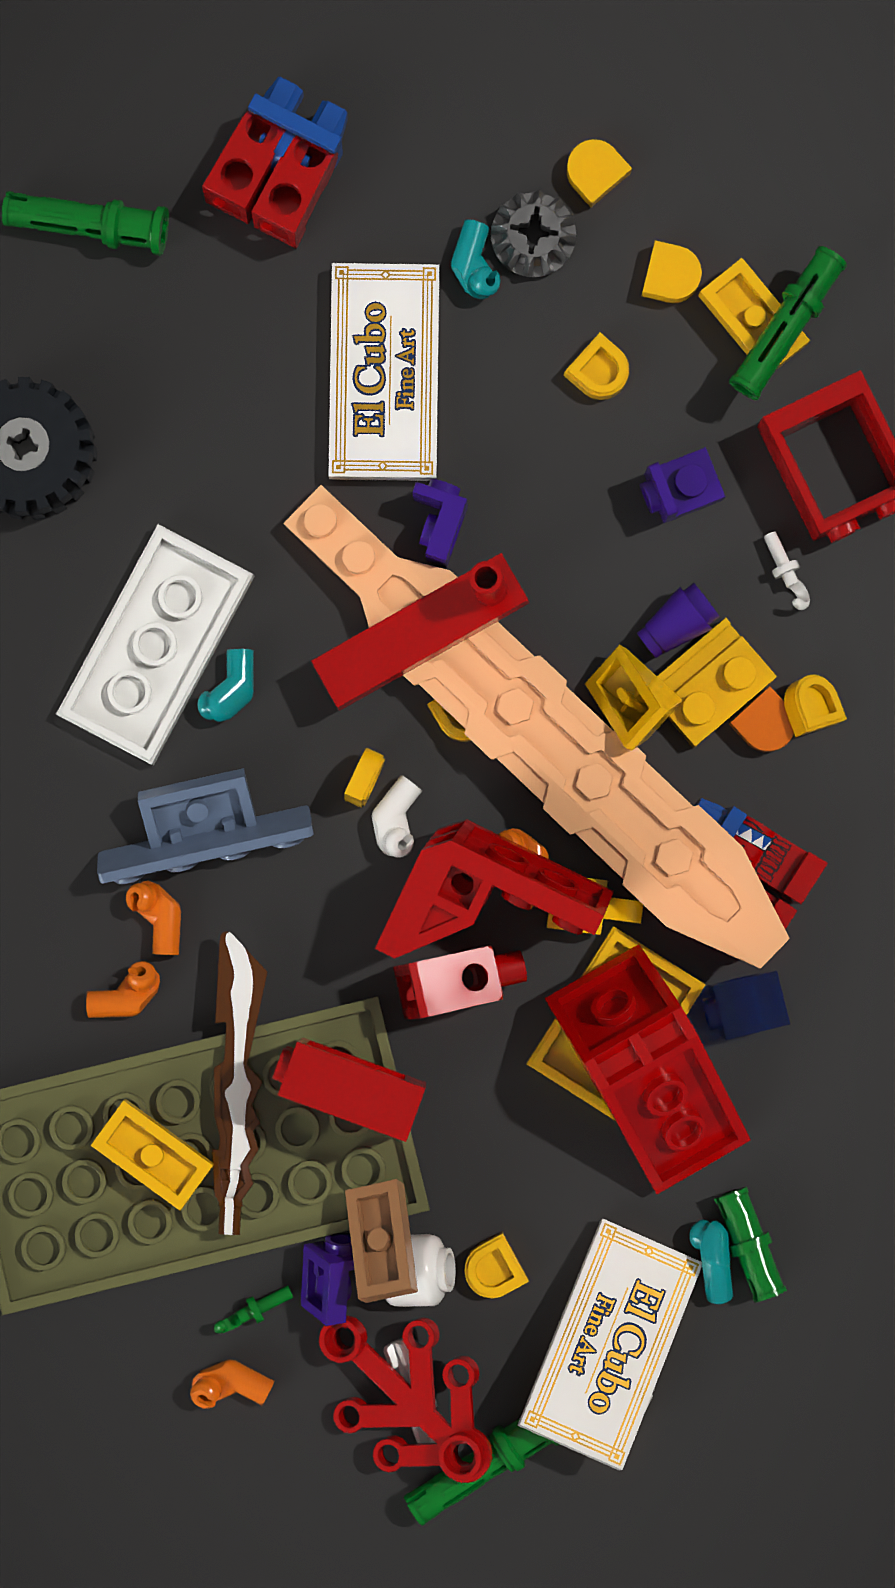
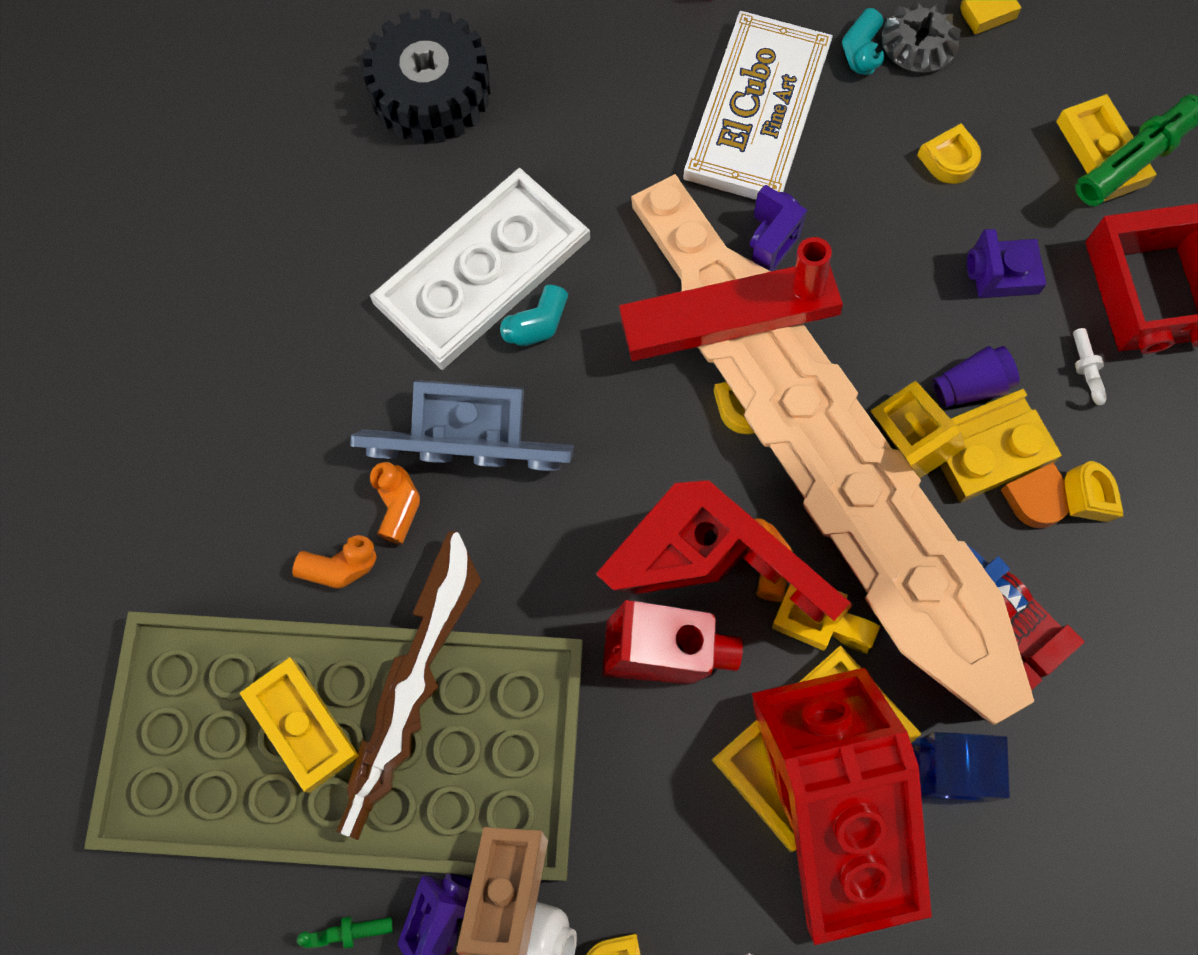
camera: 20 degrees right, 15 degrees down
(349, 1088) = (524, 710): red window -> none
(364, 778) = (633, 432): yellow tile -> none
(391, 821) = (648, 476): white arm -> none
(671, 273) = (1036, 98): yellow tile -> none

